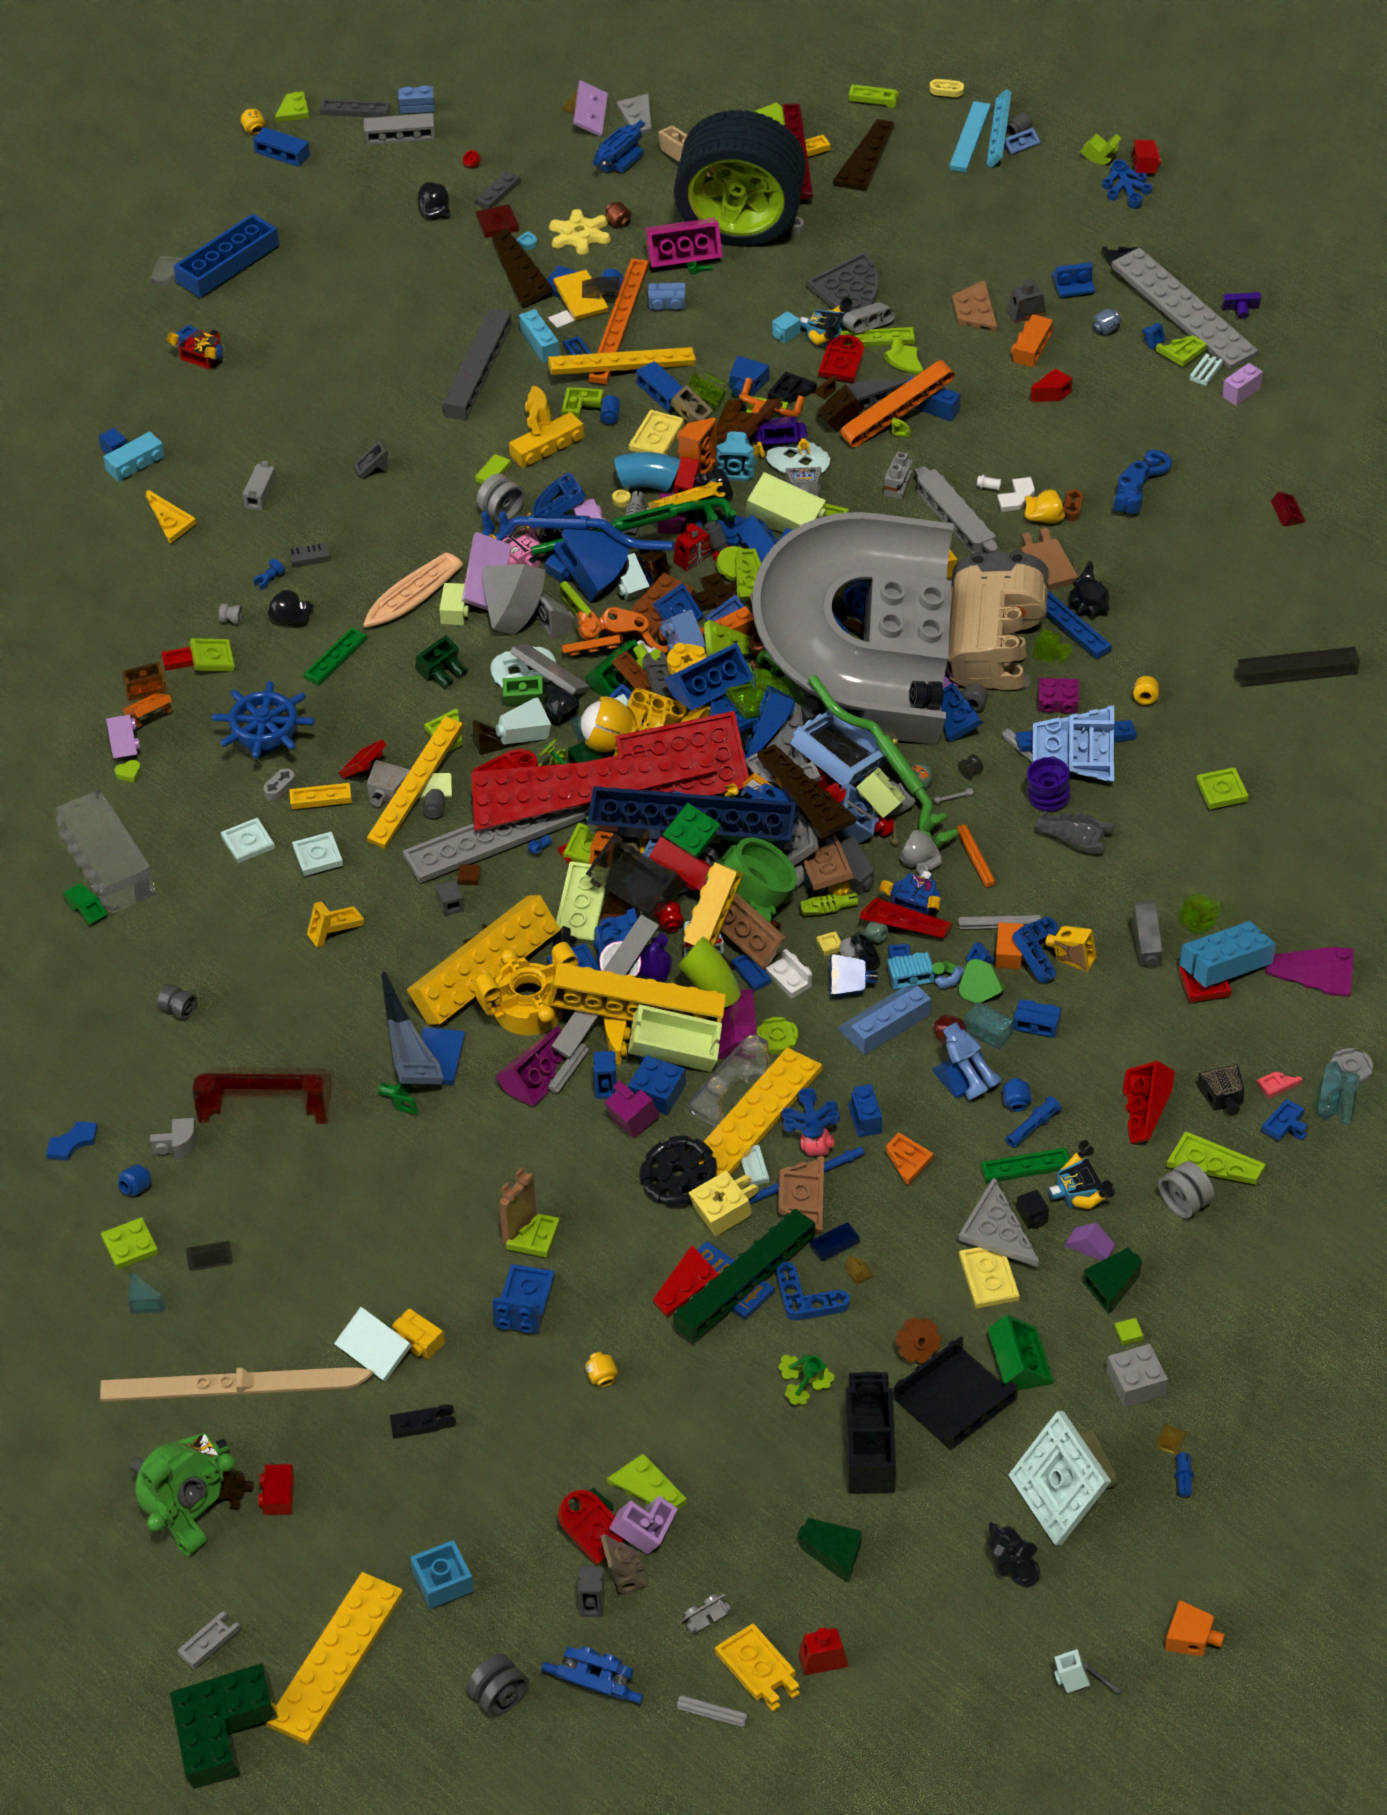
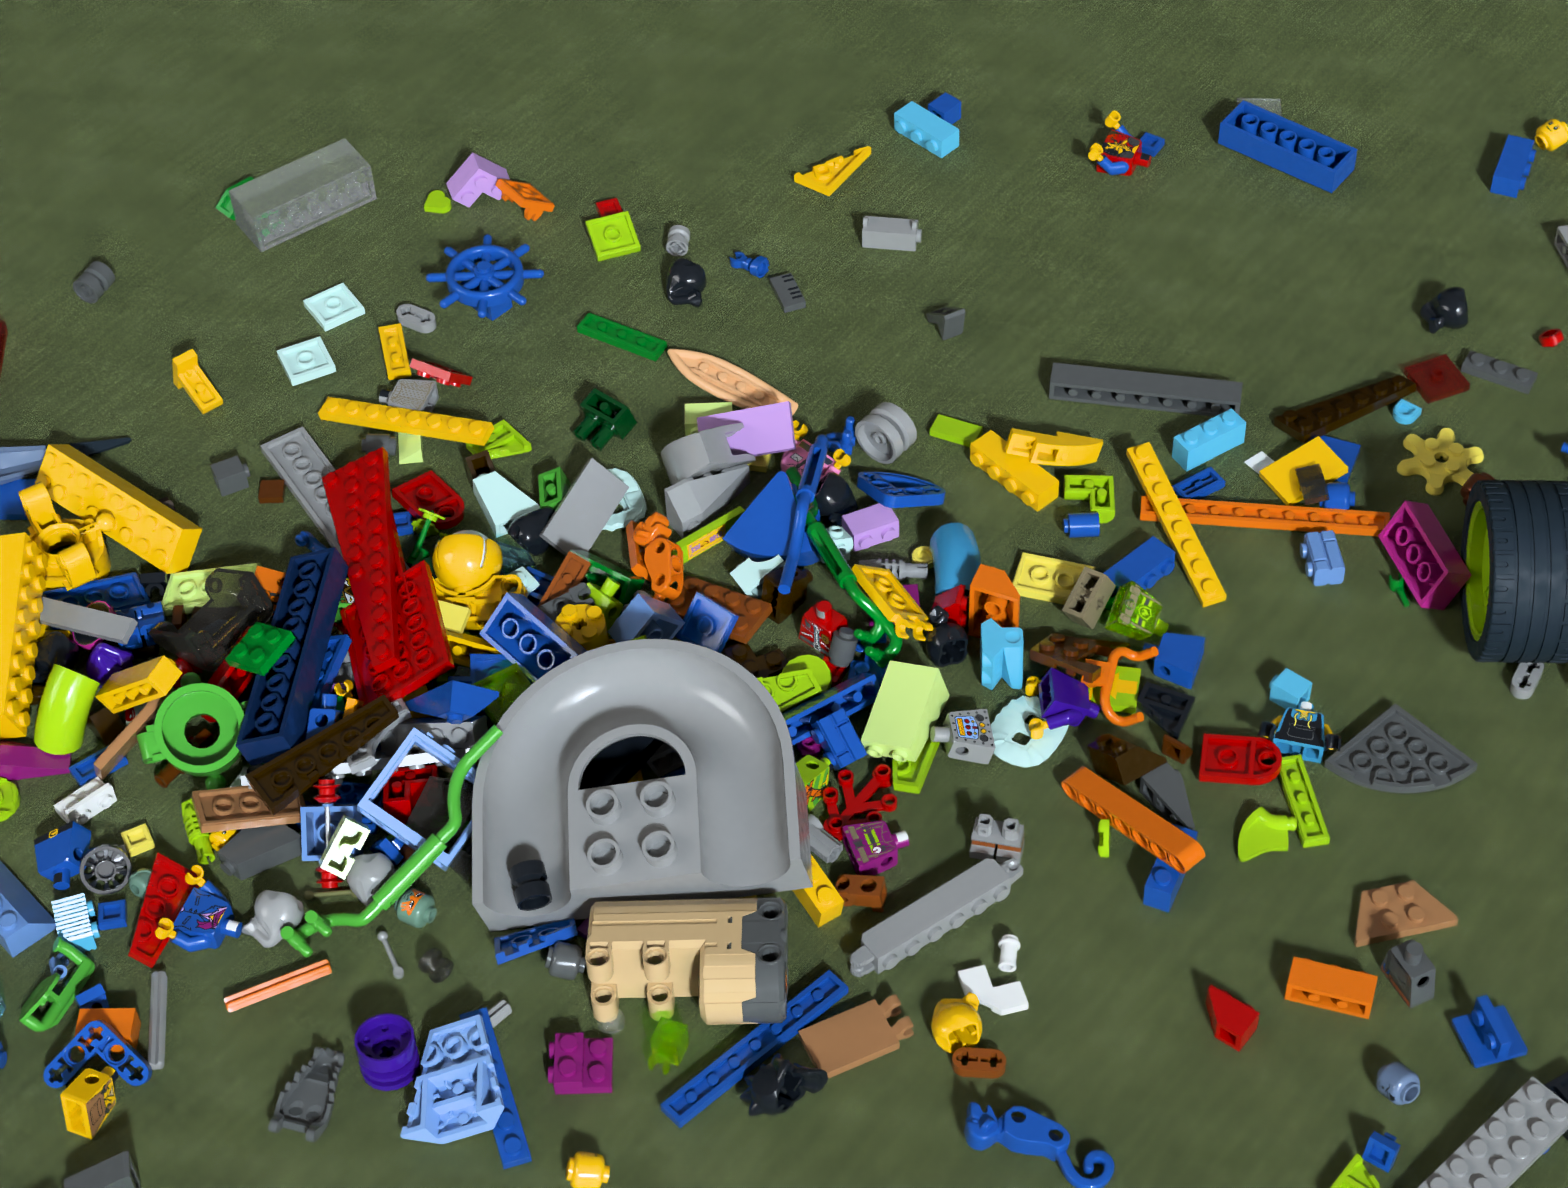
camera: 85 degrees right, 0 degrees up
(144, 681) = (561, 187): clear orange brick -> none
(868, 317) = (1329, 780): light grey beam -> none

